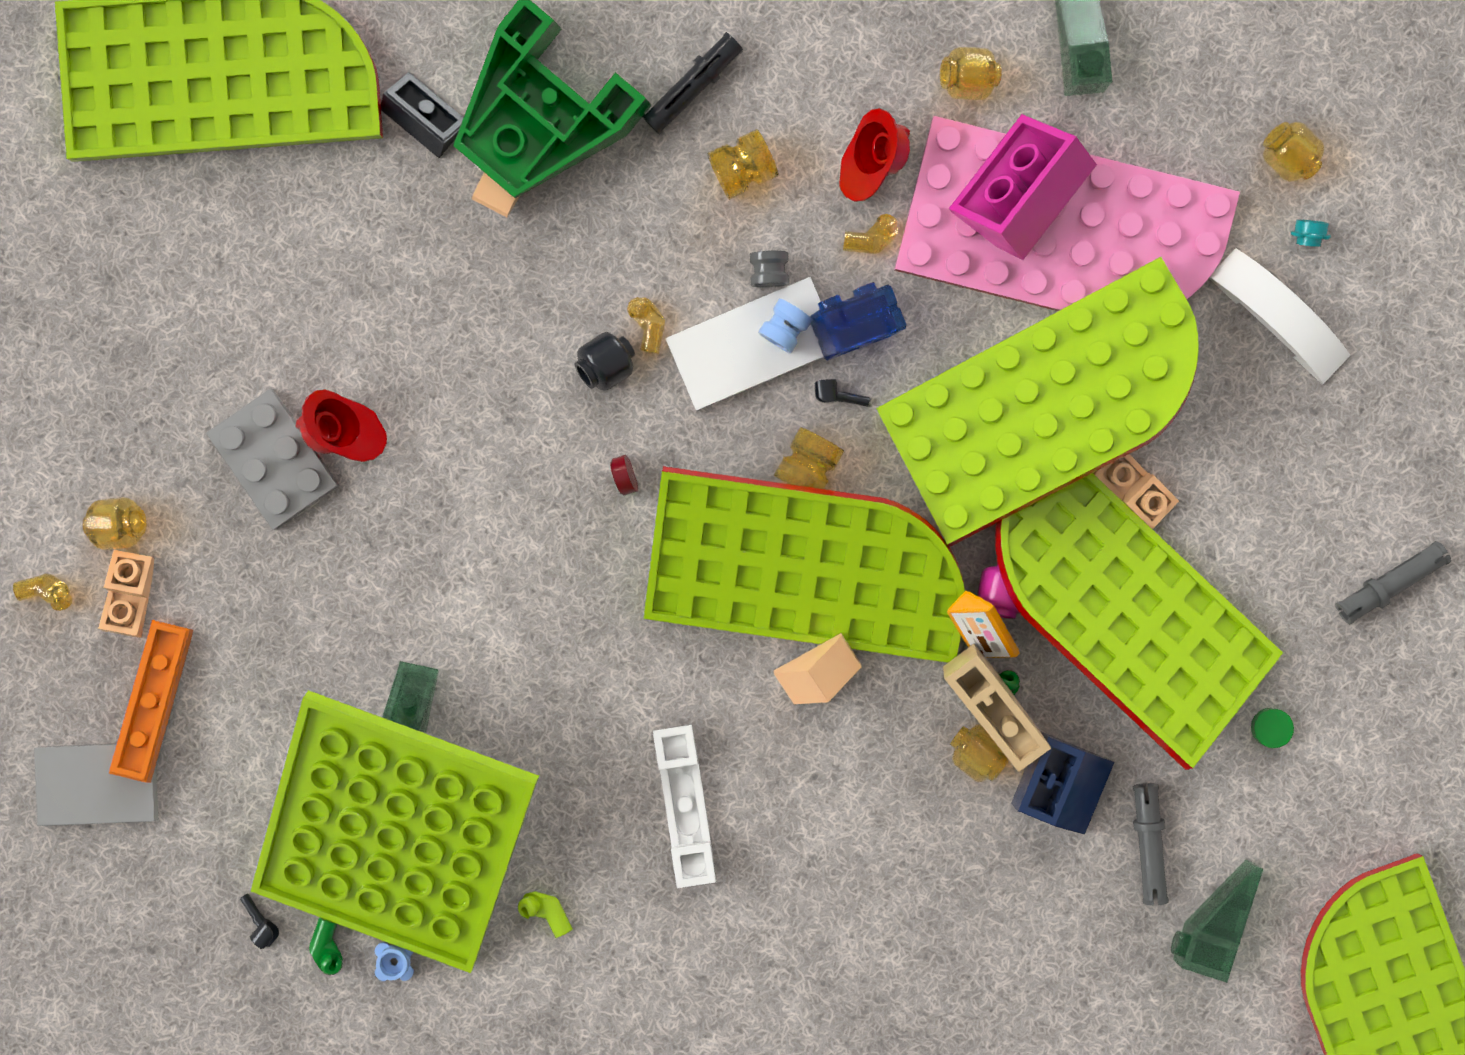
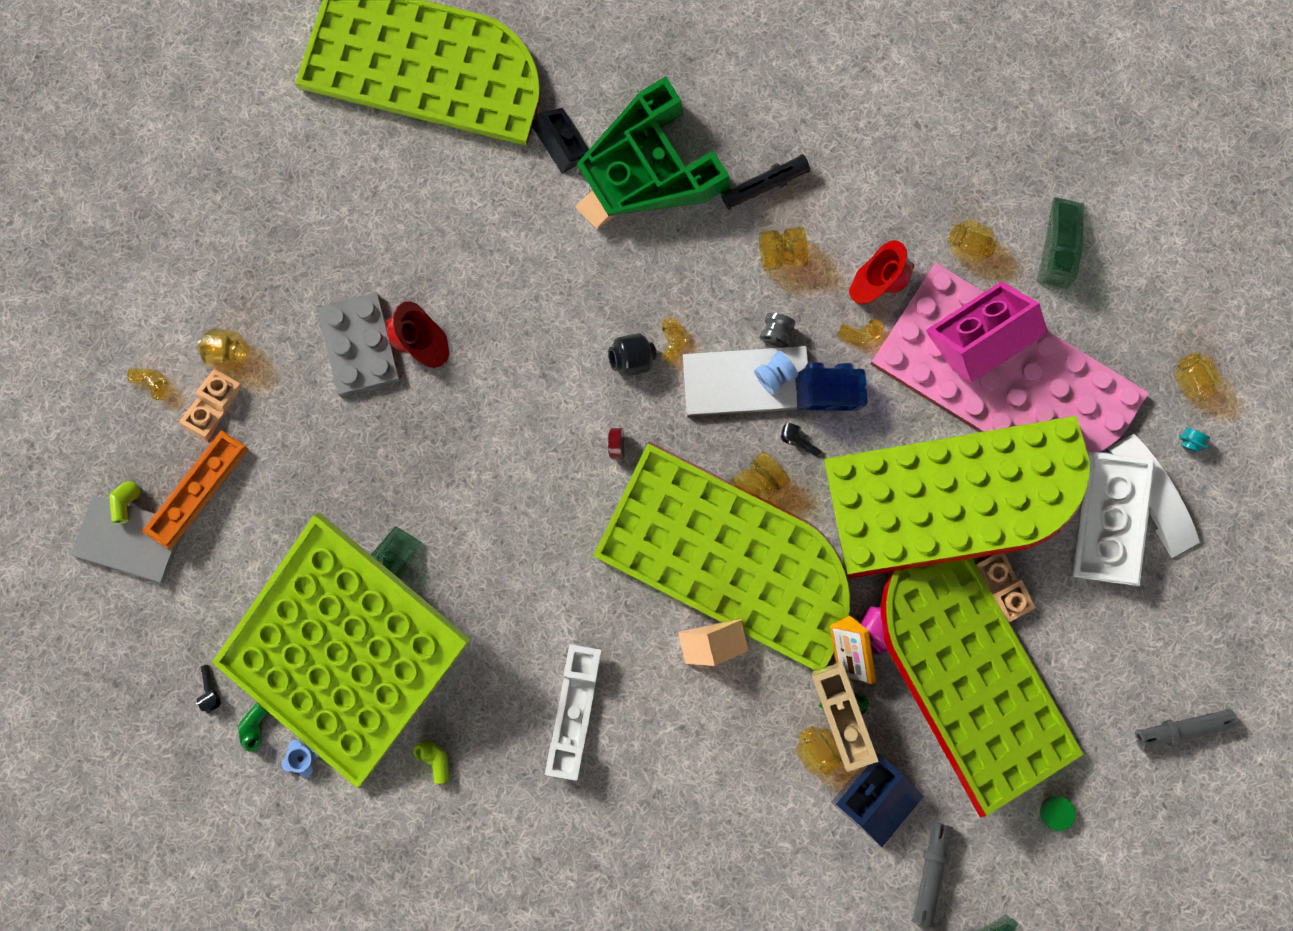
camera: 20 degrees right, 10 degrees down
(68, 742) = (120, 498): none -> lime arm
(1241, 363) = (1114, 519): none -> white tile

